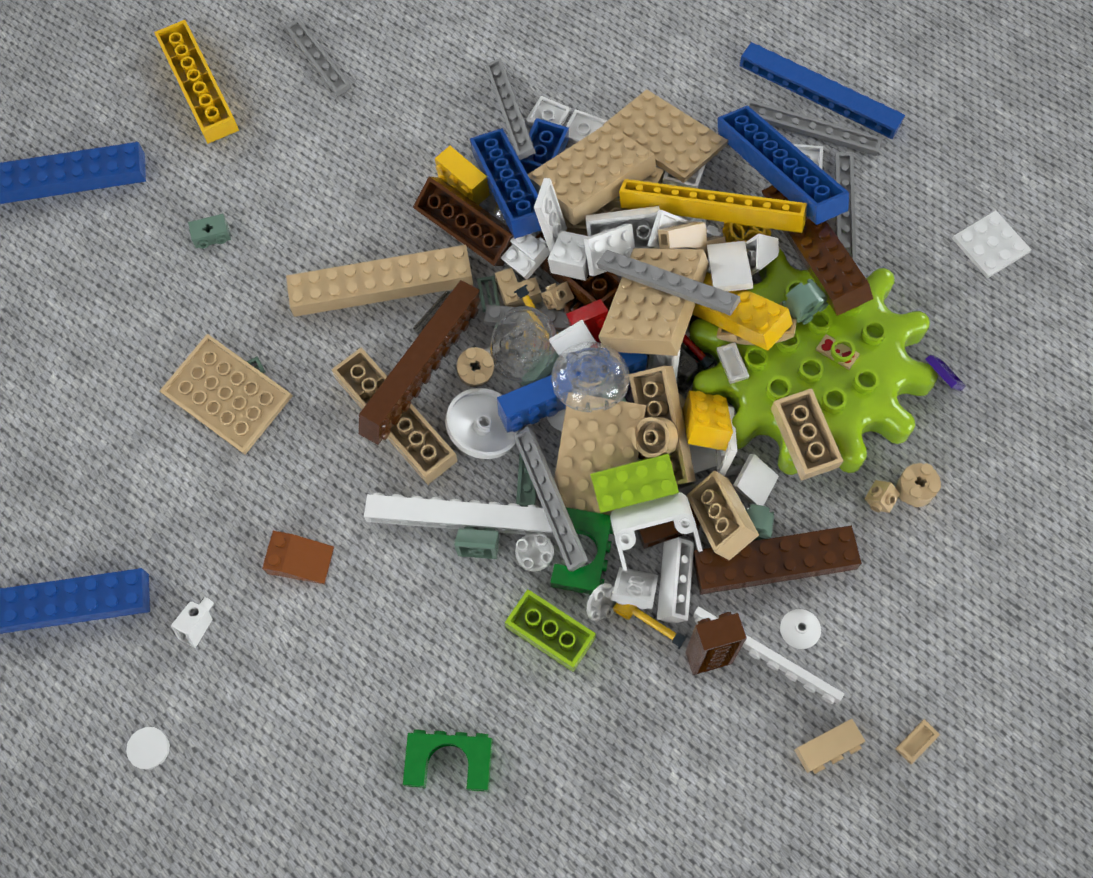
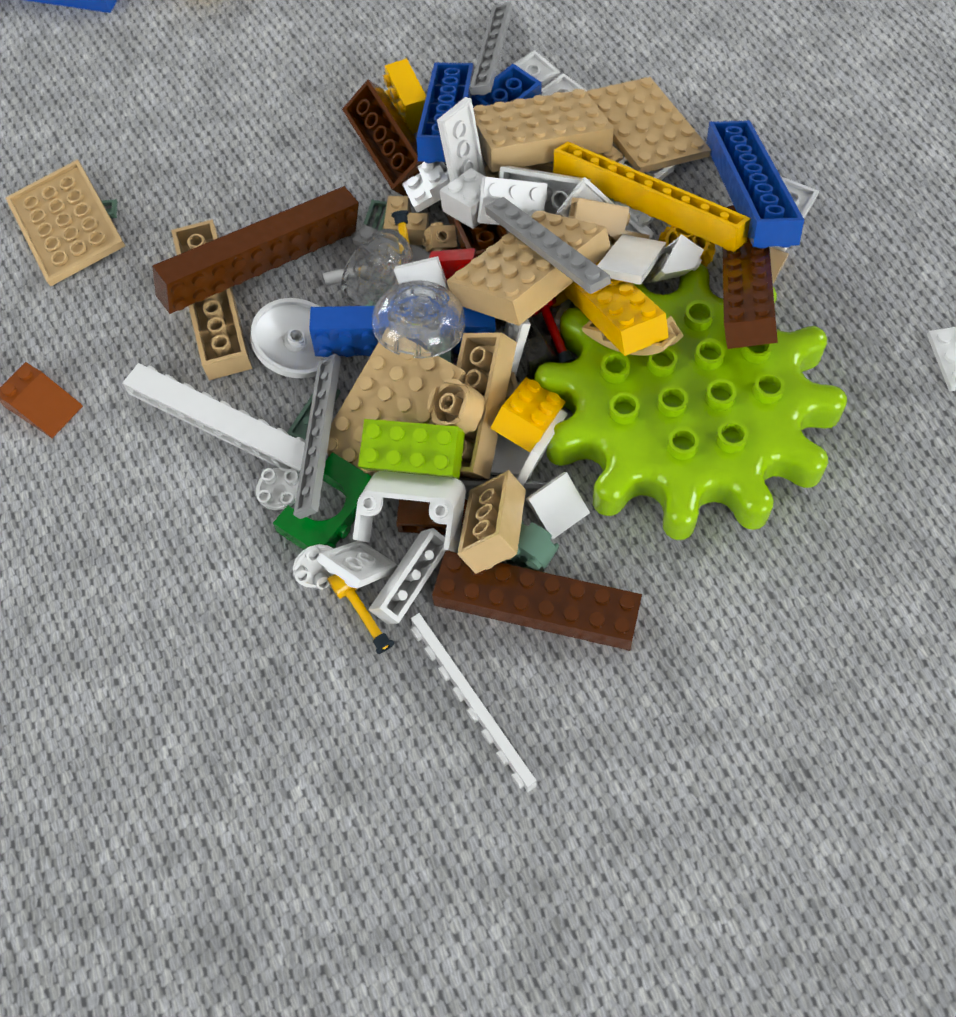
camera: 25 degrees right, 5 degrees down
(209, 231) = (138, 71): sand green brick -> none
(378, 280) = (270, 166): tan brick -> none
(422, 746) = (46, 640): green arch -> none
(473, 356) = (311, 270): tan brick -> none
(477, 543) = (221, 454): sand green slope -> none
(550, 630) = (246, 574): lime brick -> none
(715, 643) = (396, 649): reddish brown brick -> none
(732, 363) = (586, 363): white tile -> none
(796, 637) = (526, 701): white dish -> none
(805, 301) = (696, 320): sand green brick -> none
(806, 434) = (628, 465): tan brick -> none
(817, 128) = (822, 171): light grey plate -> none
(822, 90) = (847, 136): blue brick -> none
(830, 746) = (490, 836): tan brick -> none
(842, 350) = (719, 393): tan tile -> none
(846, 221) = (810, 265): light grey plate -> none
(882, 496) = (698, 579): tan brick -> none
(917, 741) = (601, 878): tan tile -> none
(927, 487) = (758, 573): tan brick -> none
(945, 372) = (840, 468): dark purple tile -> none

